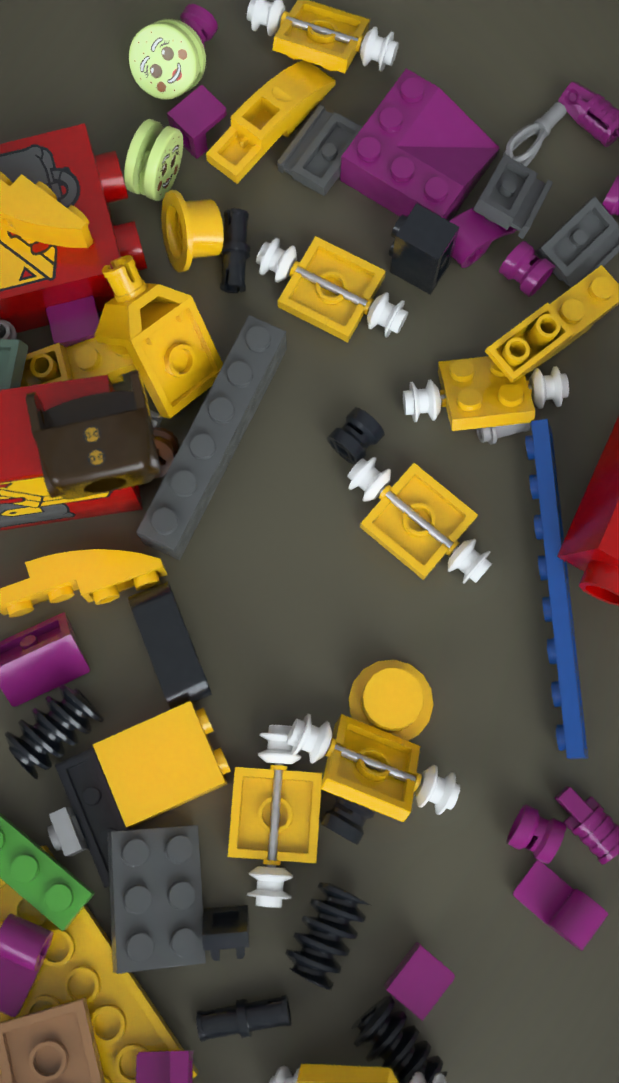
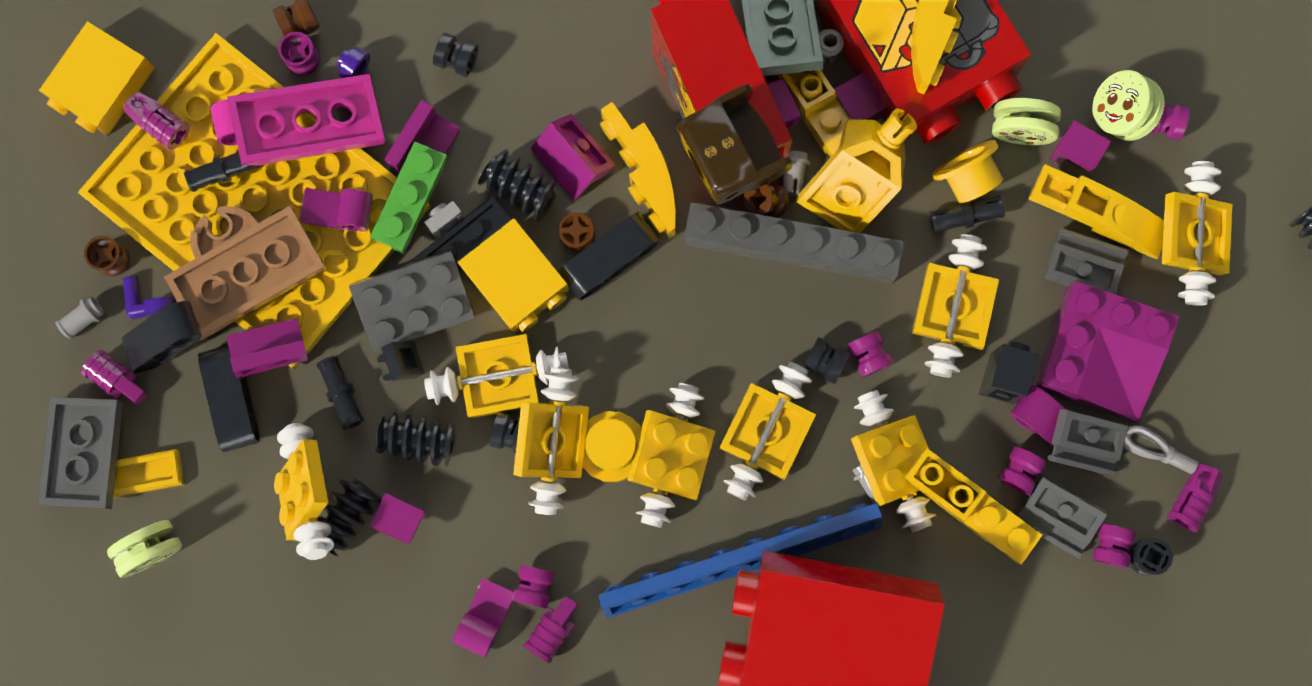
camera: 80 degrees right, 5 degrees up
(122, 674) = (576, 225): none -> reddish brown wheel
(370, 385) = (870, 354): none -> magenta wheel
(420, 634) = (671, 455): none -> yellow plate

